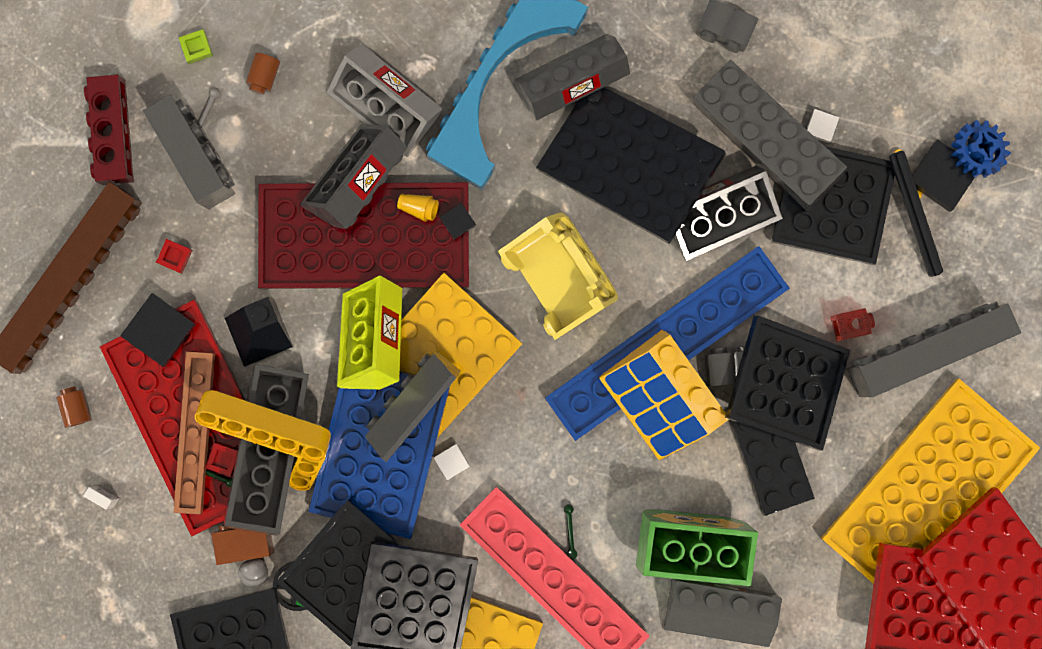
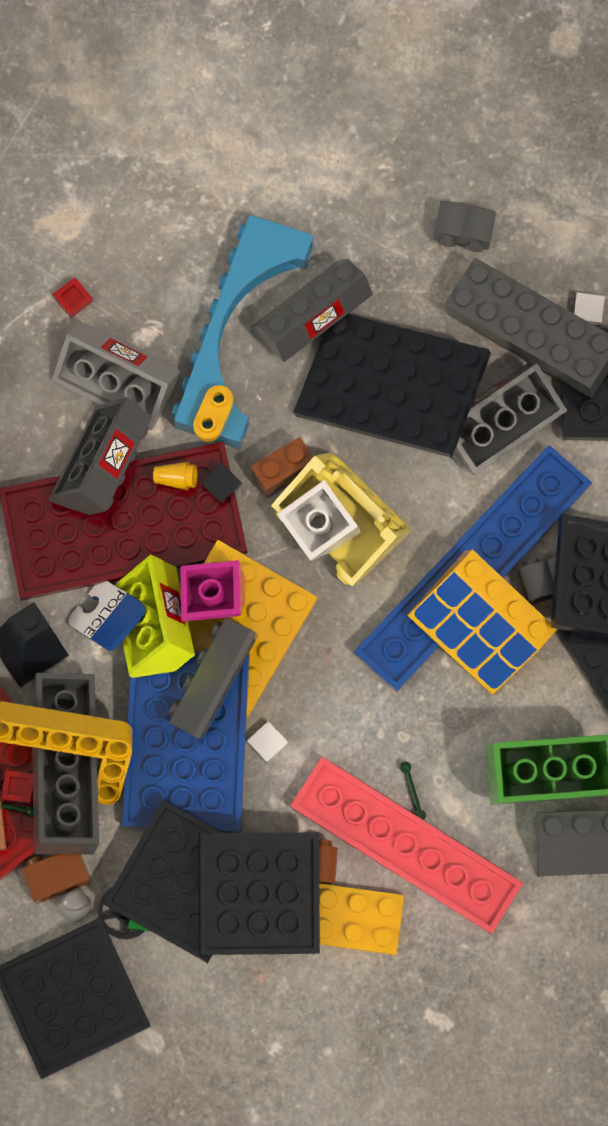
camera: 10 degrees left, 10 degrees down
(333, 327) = (111, 619): none -> piece
(360, 19) = (73, 297): none -> red tile
(427, 325) = (212, 590): none -> dark pink slope
(463, 155) = (214, 412): none -> yellow plate
(482, 581) = (327, 862): none -> dark orange brick
(516, 216) = (281, 467): none -> dark orange brick
(537, 276) = (319, 522): none -> white slope

